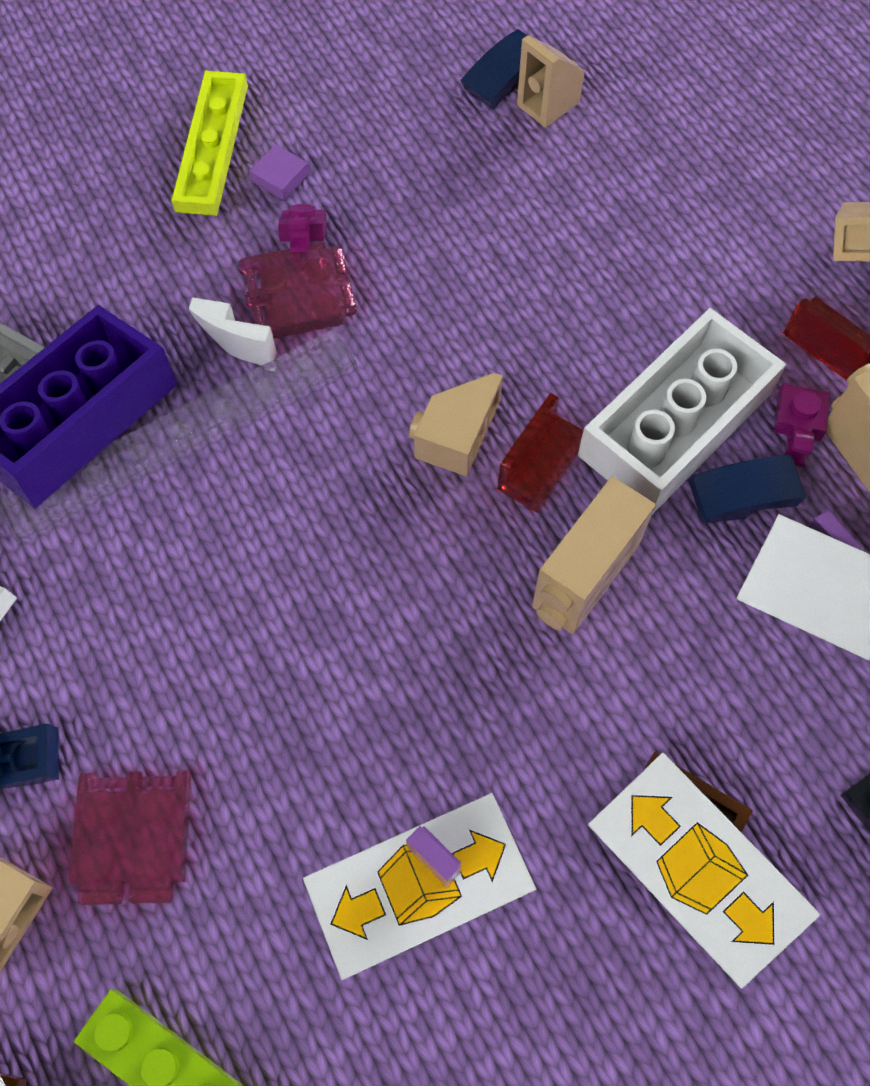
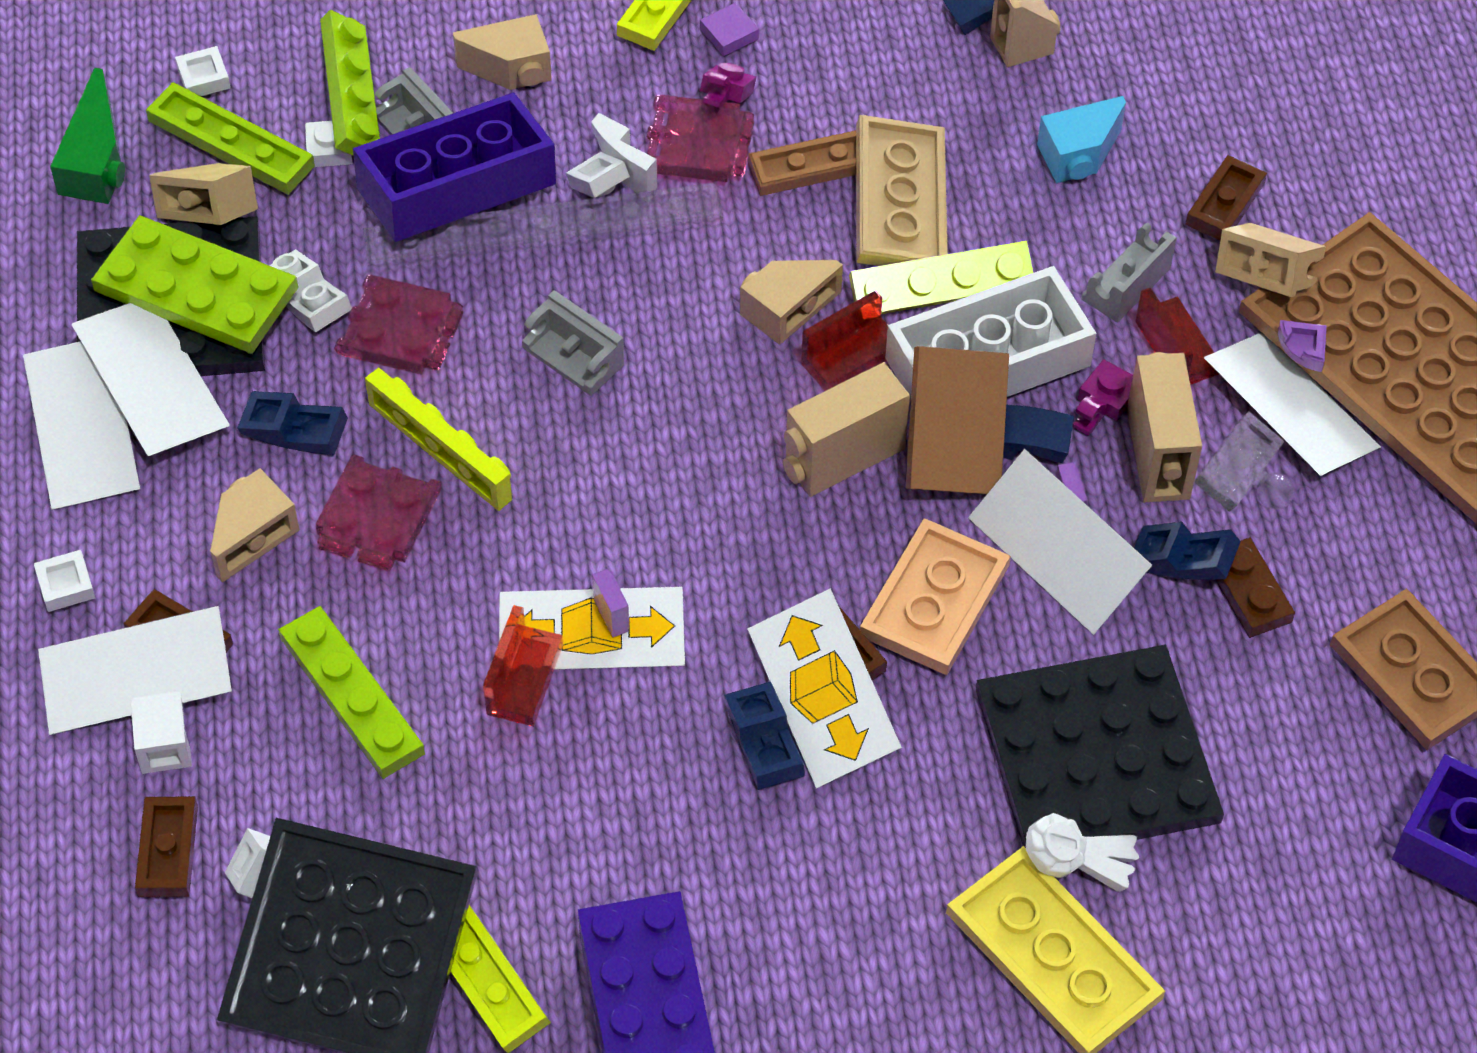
camera: 20 degrees right, 10 degrees down
(72, 264) = (505, 52): none -> tan slope
(75, 598) = (402, 326): none -> clear pink plate
(148, 711) = (434, 435): none -> neon yellow plate
(215, 361) = (597, 175): none -> white plate
(265, 554) = (574, 343): none -> light grey hinge
(371, 980) = (521, 670): none -> clear red panel
(418, 274) = (804, 163): none -> medium nougat tile
(515, 283) = (899, 191): none -> tan tile
(595, 353) = (942, 277): none -> plate
(650, 173) = (1080, 138): none -> medium azure slope
(663, 950) = (764, 735): none -> dark blue slope
(699, 507) = (957, 420): none -> medium nougat tile
(758, 709) = (935, 596): none -> light nougat plate
(762, 287) = (1134, 270): none -> light grey hinge
(806, 187) = (1226, 197): none -> reddish brown plate

